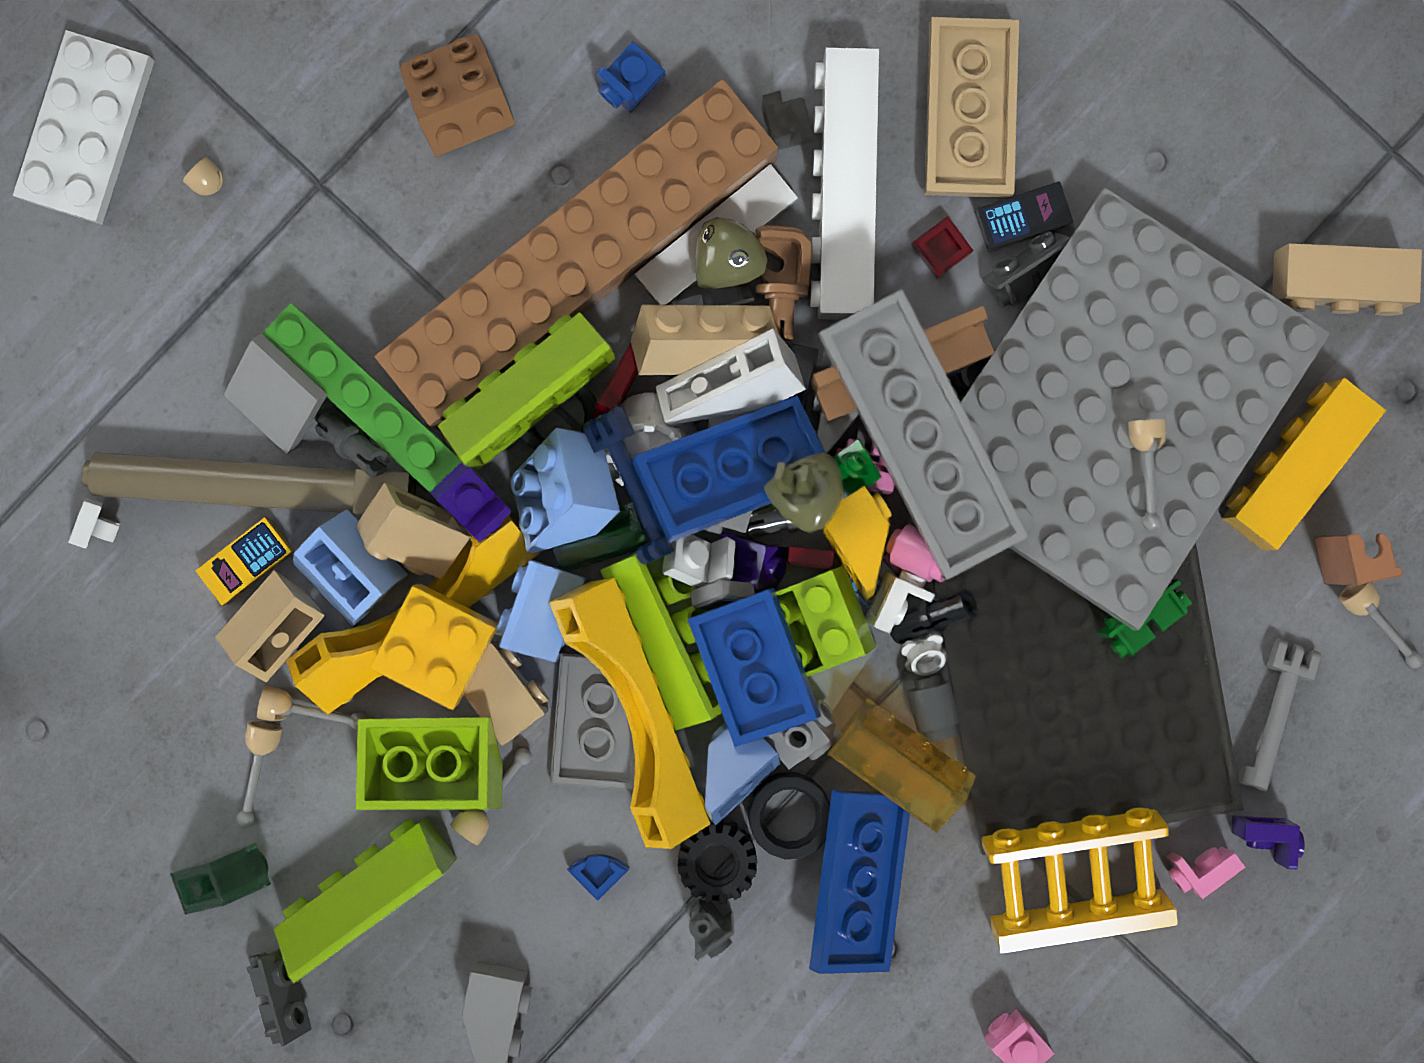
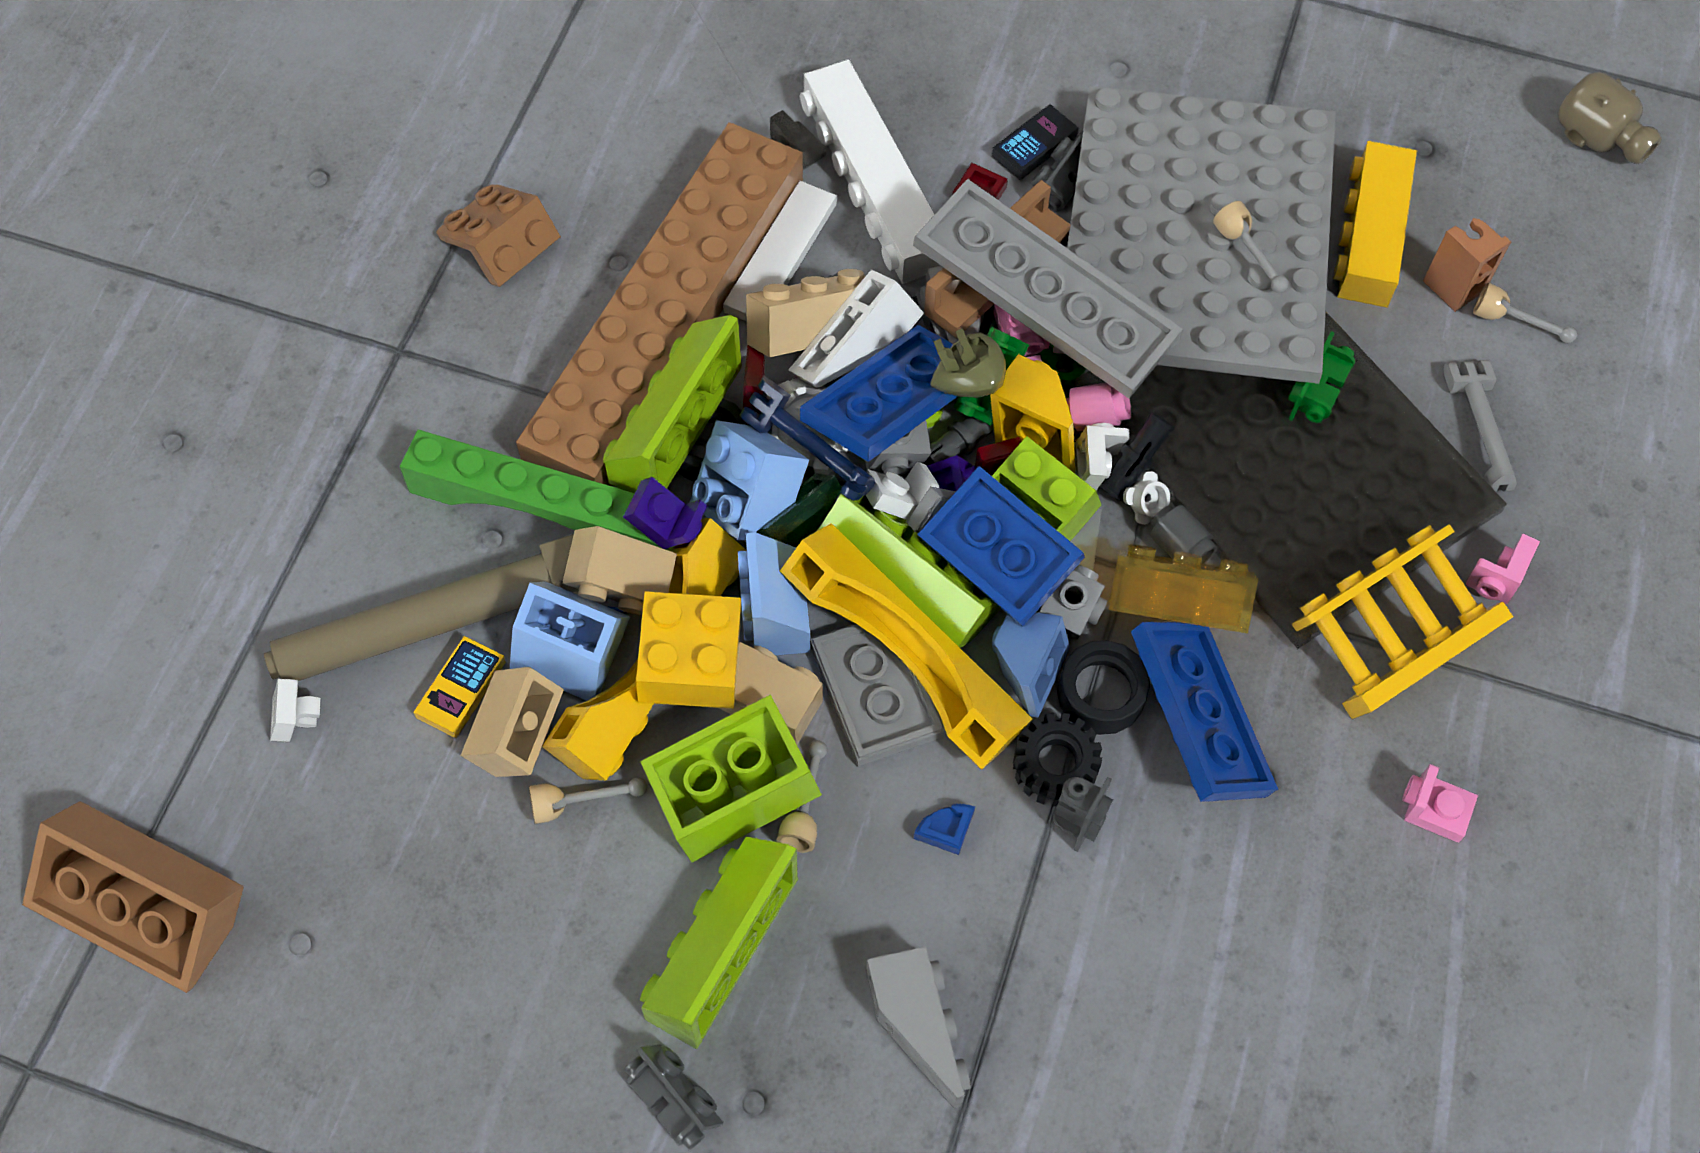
camera: 25 degrees left, 25 degrees down
(83, 127) = (156, 387): white plate -> none
(204, 178) = (289, 378): tan hinge -> none
(221, 879) = (559, 996): clear green slope -> none
(260, 739) = (547, 841): hinge -> none
(274, 394) = (432, 518): light grey tile -> none
(352, 443) = (525, 529): dark grey pin -> none
(629, 78) = (645, 166): blue bracket -> none
(727, 254) = (800, 247): olive piece -> none
(783, 288) = (850, 237): medium nougat piece -> none
(971, 107) = (947, 82): tan plate -> none
(1264, 831) = (1545, 512): dark purple bracket -> none
(1347, 278) = (1326, 77): tan brick -> none

